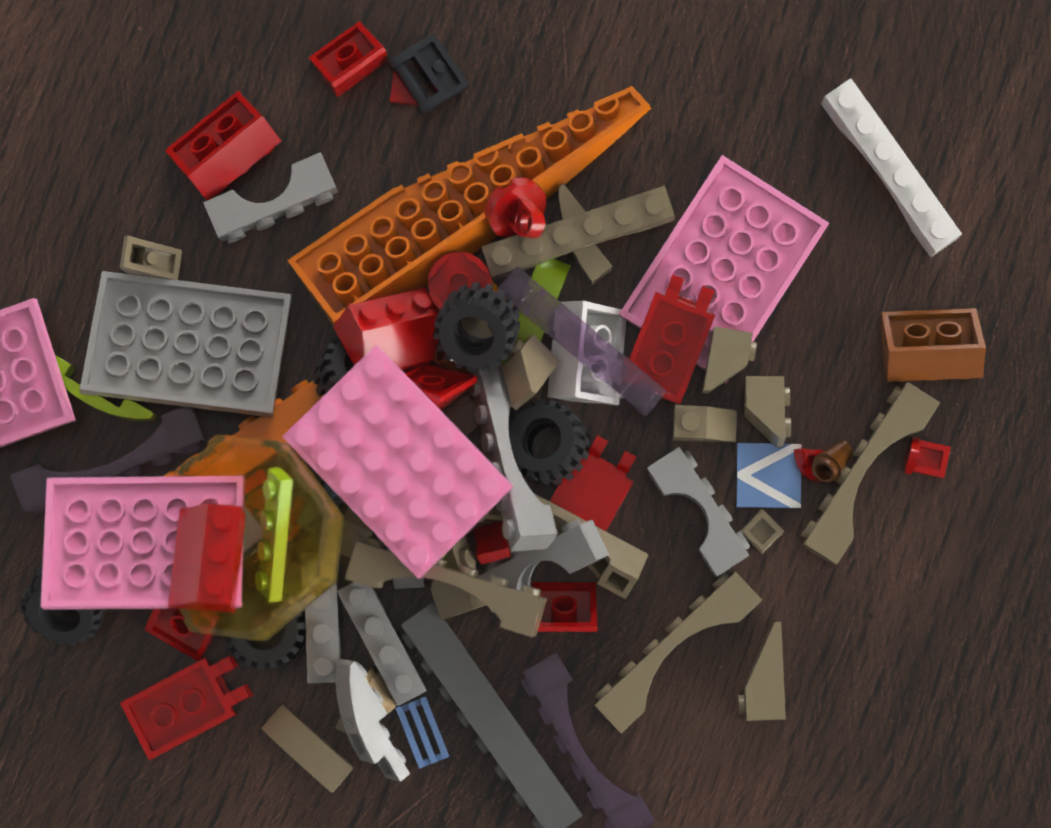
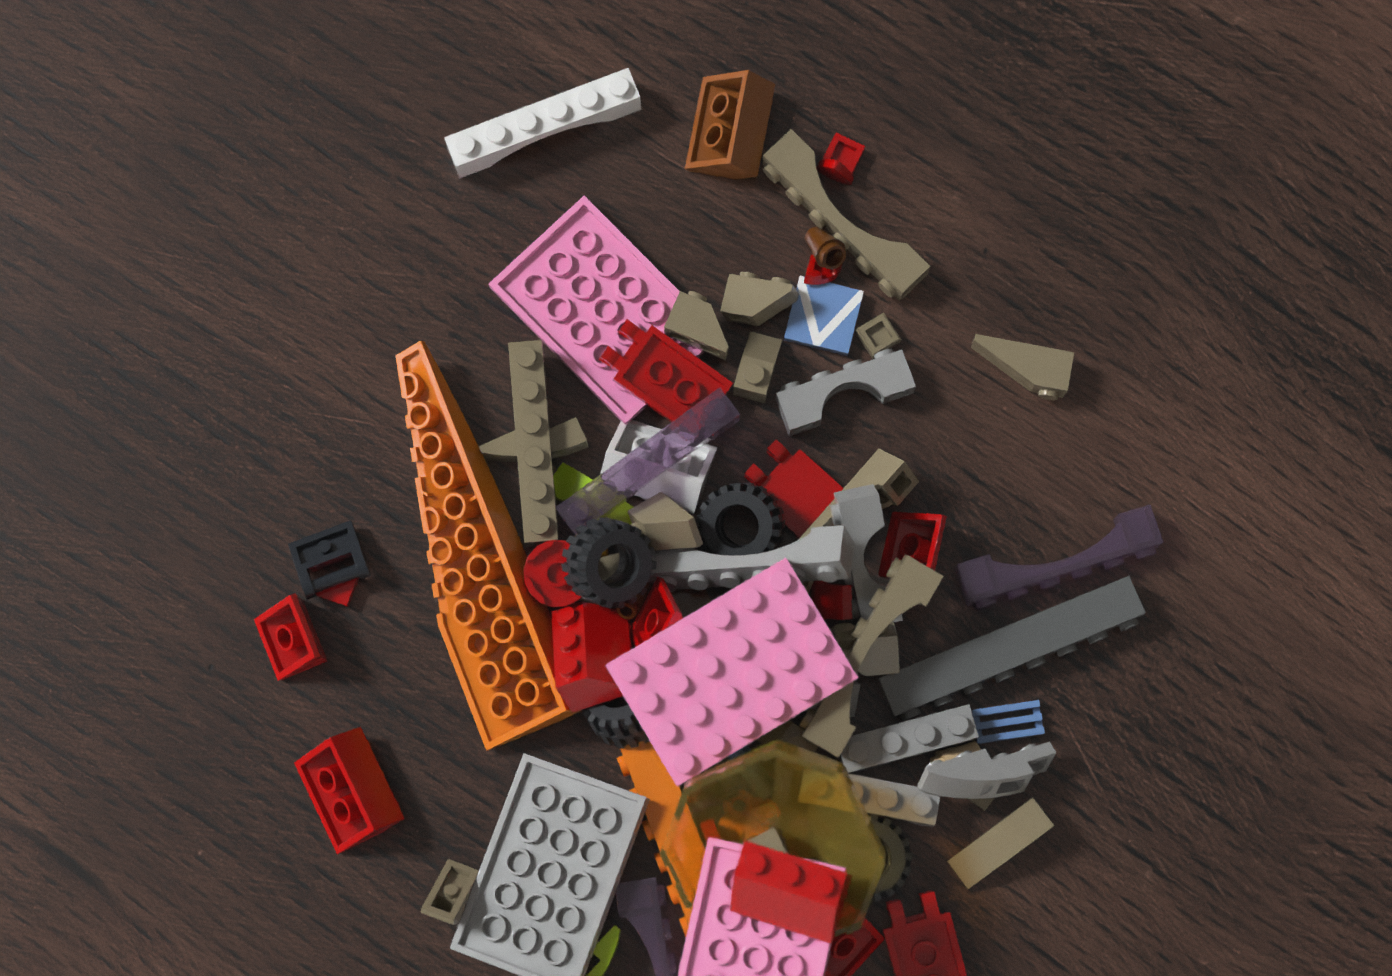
camera: 75 degrees left, 5 degrees down
(275, 525) = (778, 816): lime plate -> none
(308, 184) = (424, 794): light grey arch -> none
(517, 209) = (495, 496): red tile -> none
(628, 697) = (1017, 504): dark tan arch -> none

